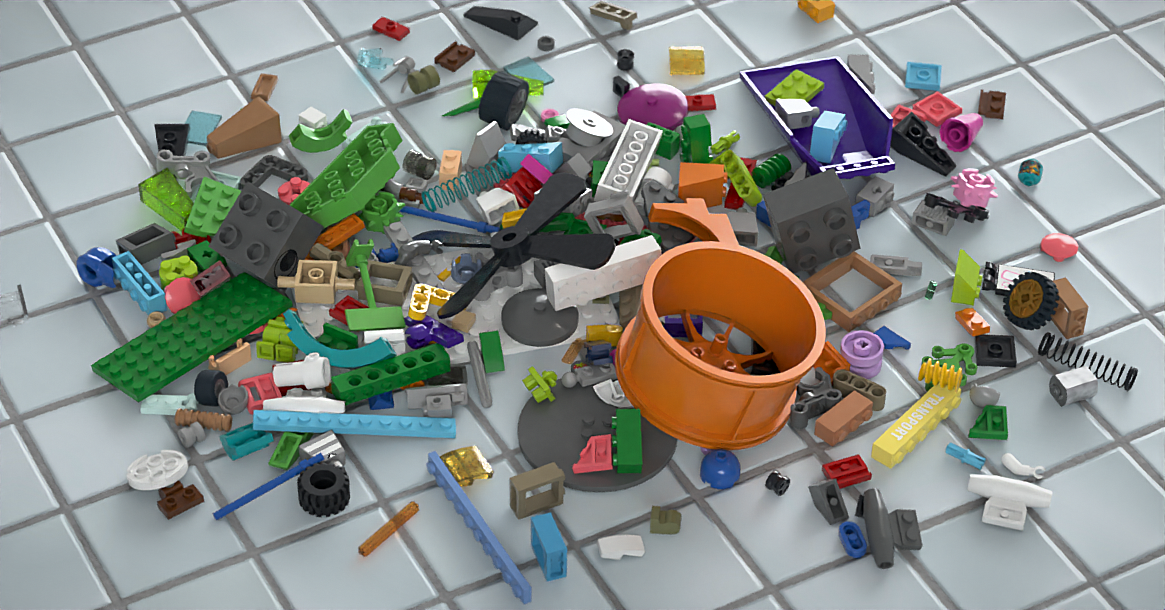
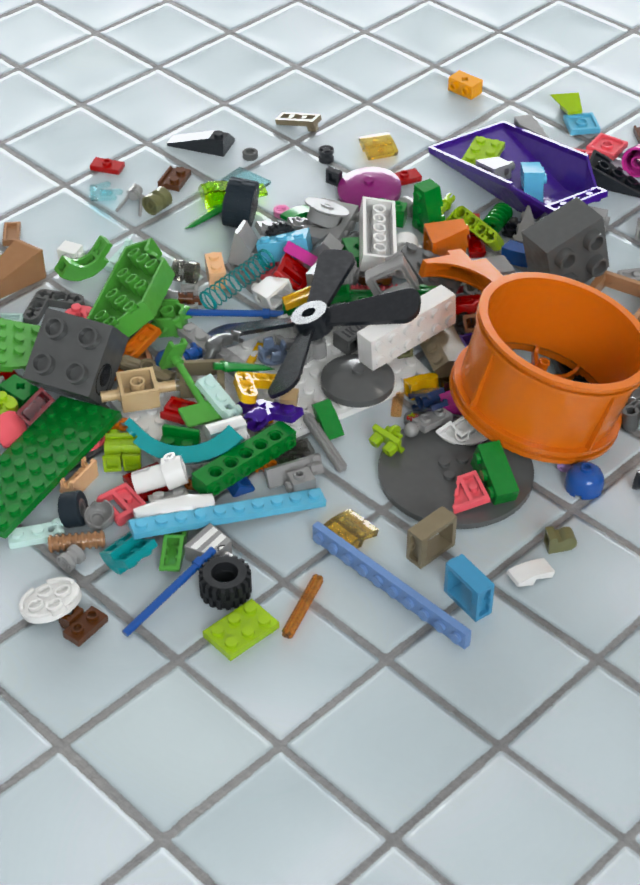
camera: 15 degrees left, 0 degrees up
(322, 537) = (241, 629): none -> lime plate
(389, 305) = (218, 397): none -> light aqua plate
(416, 277) = (227, 366): none -> green bar
(917, 49) = (569, 102): none -> lime slope

